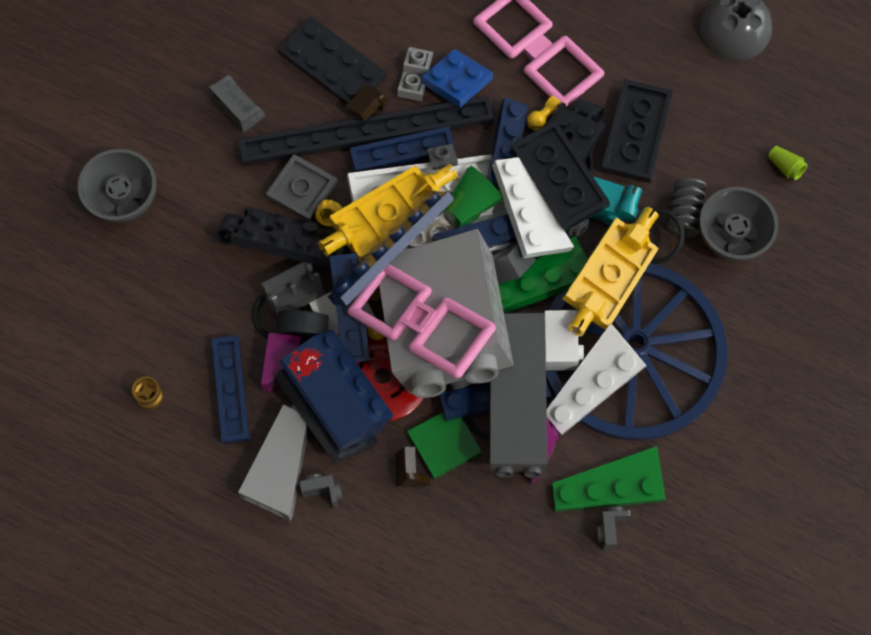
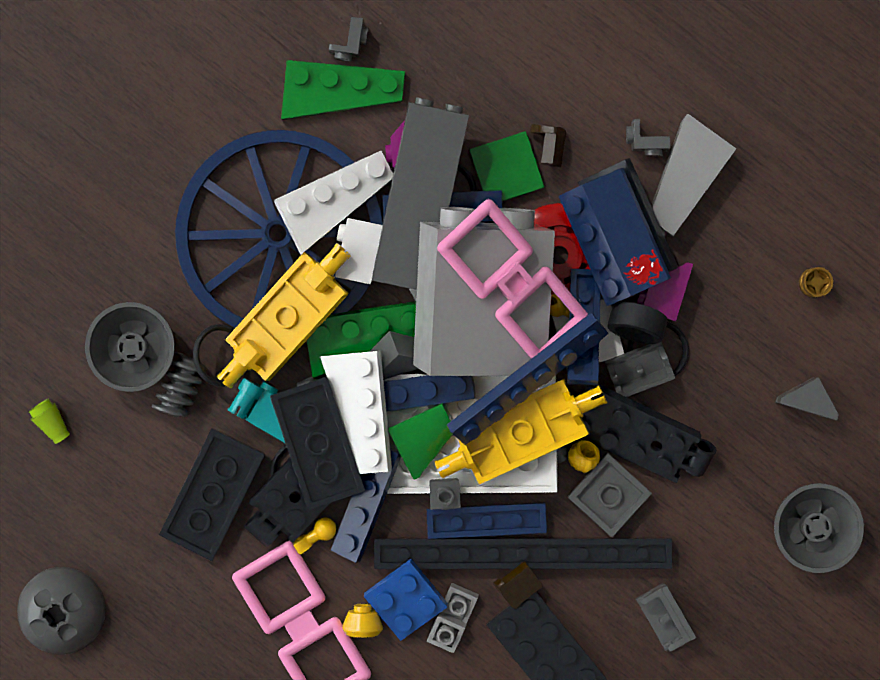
camera: 165 degrees left, 20 degrees up
(140, 294) = (811, 398): none -> dark grey slope
(230, 390) = (725, 270): dark blue plate -> none
(489, 54) = (362, 622): none -> yellow cone

